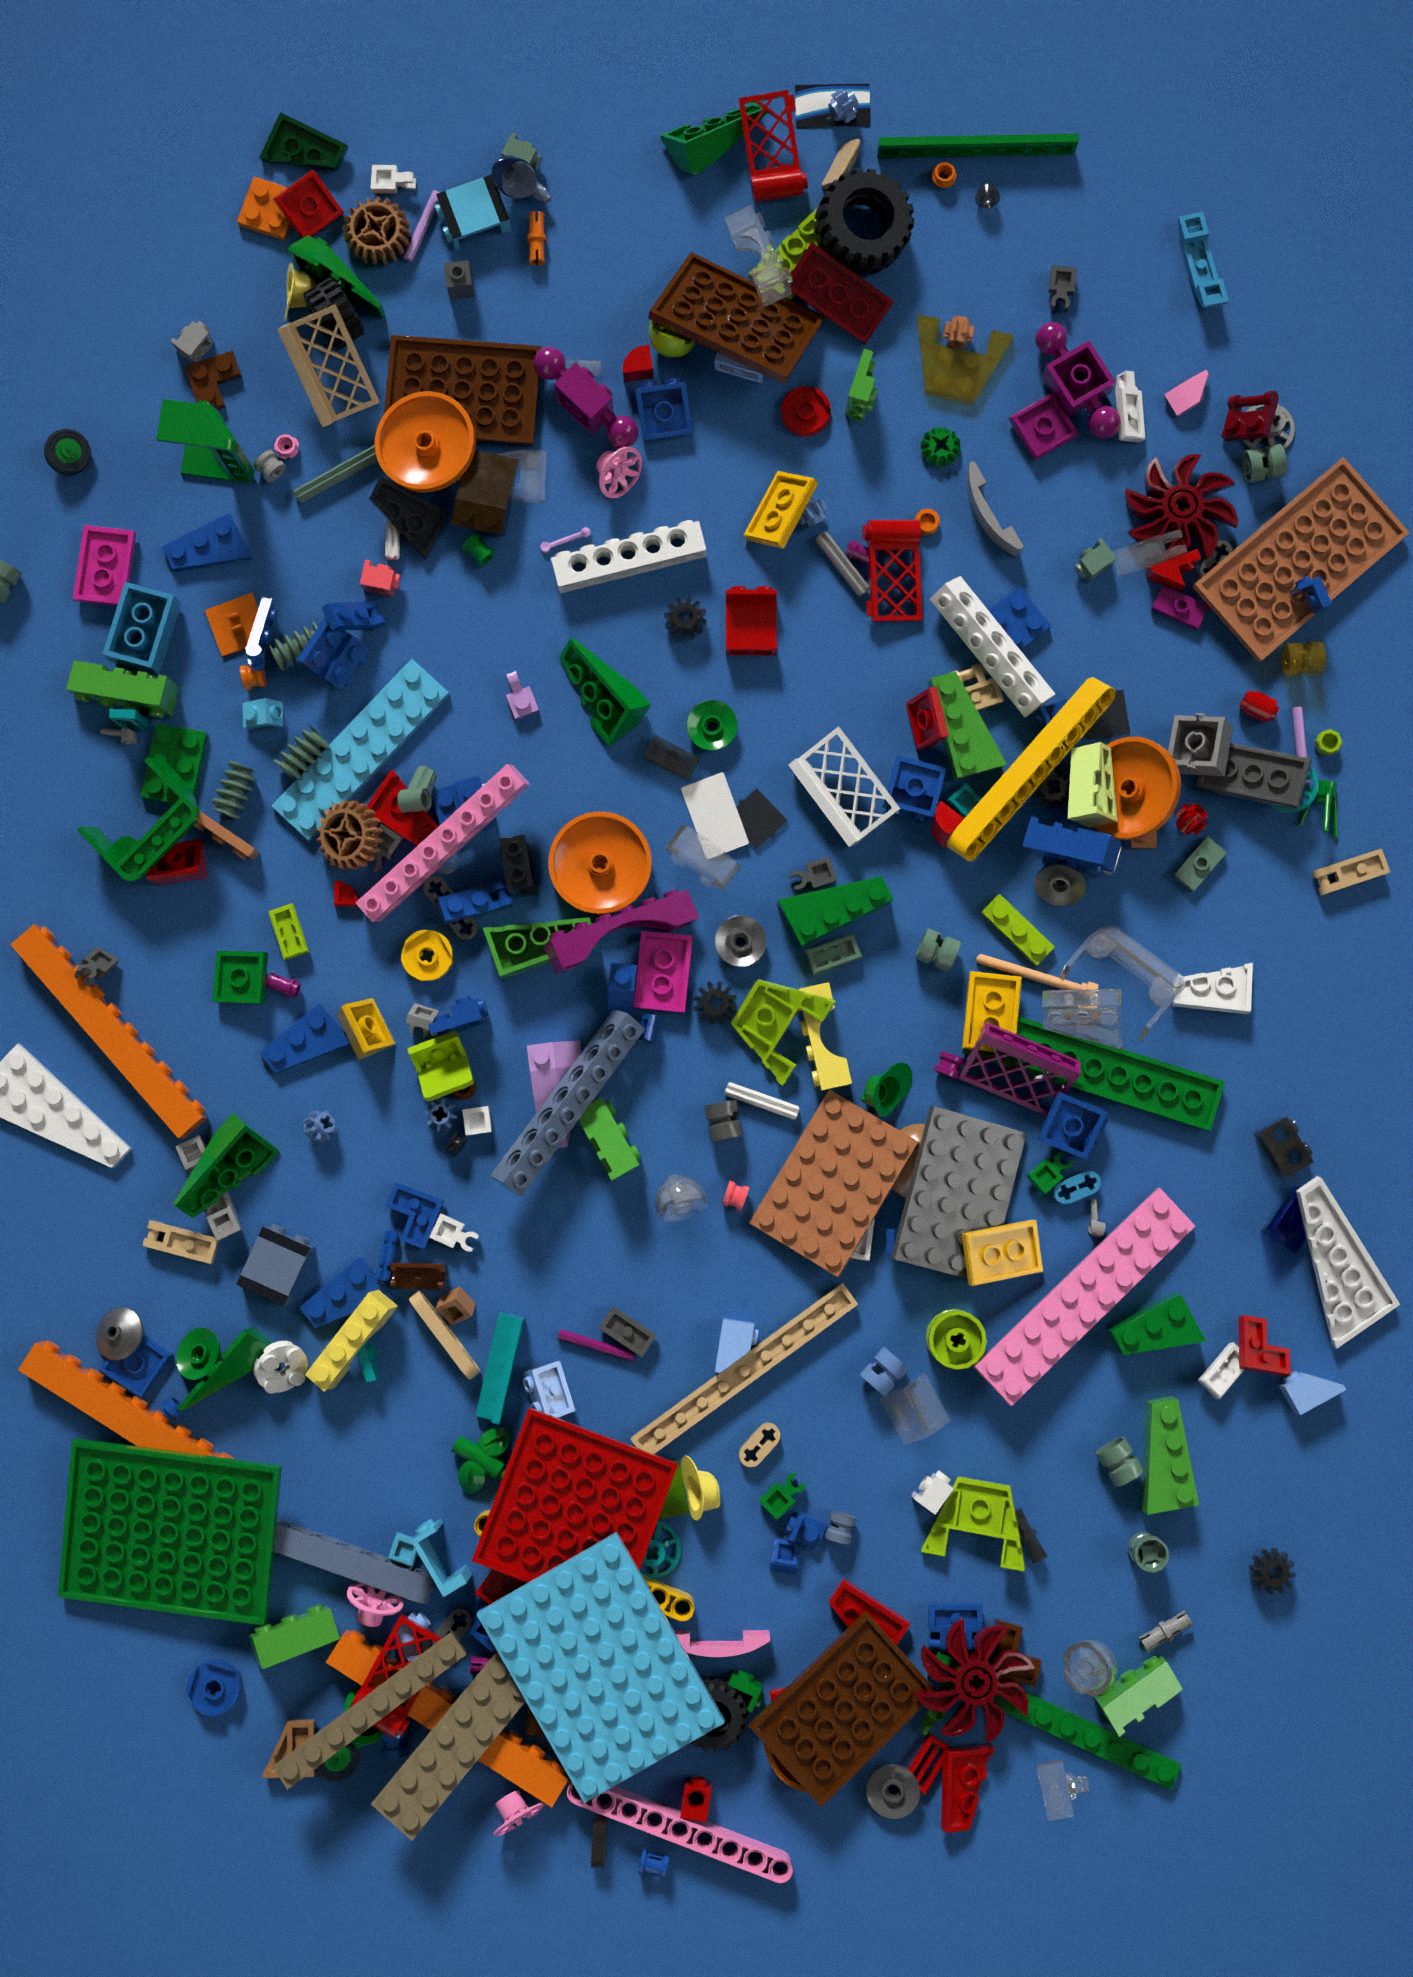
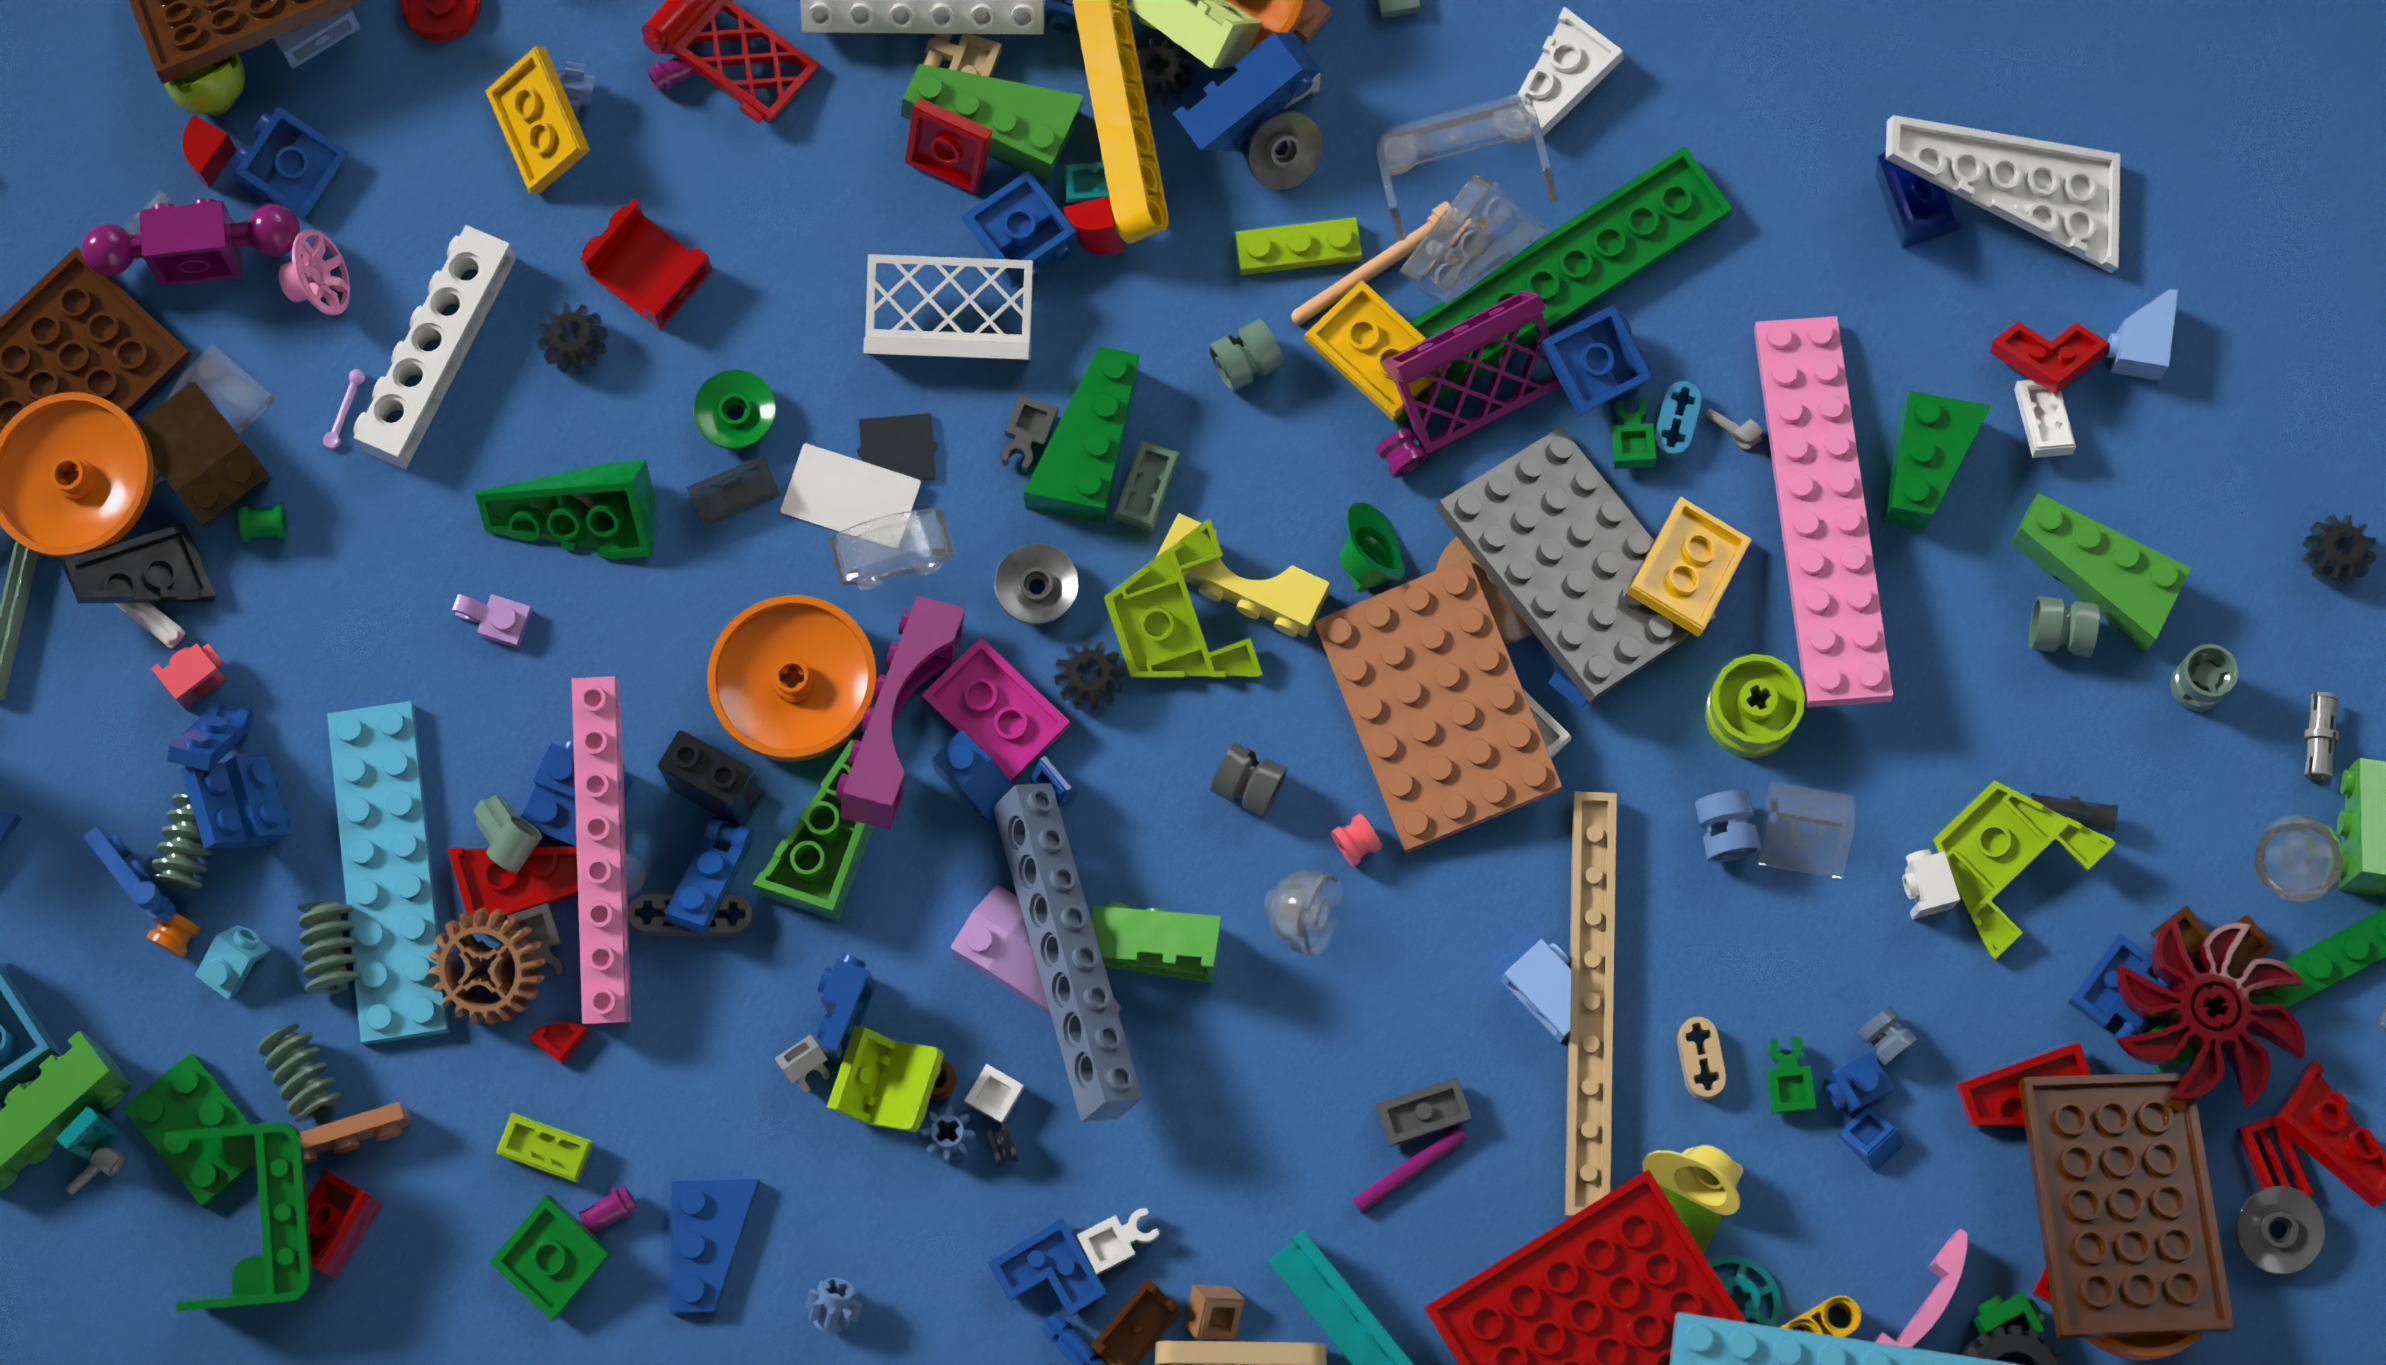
camera: 50 degrees left, 10 degrees down
(233, 623) = (84, 906): orange piece -> none
(365, 1027) = (752, 1147): yellow slope -> none
(426, 970) = (711, 973): yellow plate -> none
(549, 1389) = (1418, 1272): light blue bracket -> none
(762, 1101) = (1261, 715): white axle -> none
(842, 563) = (668, 103): light grey axle -> none
(930, 1716) = (2215, 1106): bright green piece -> none
(1278, 1151) = (1820, 151): clear smoke brick -> none

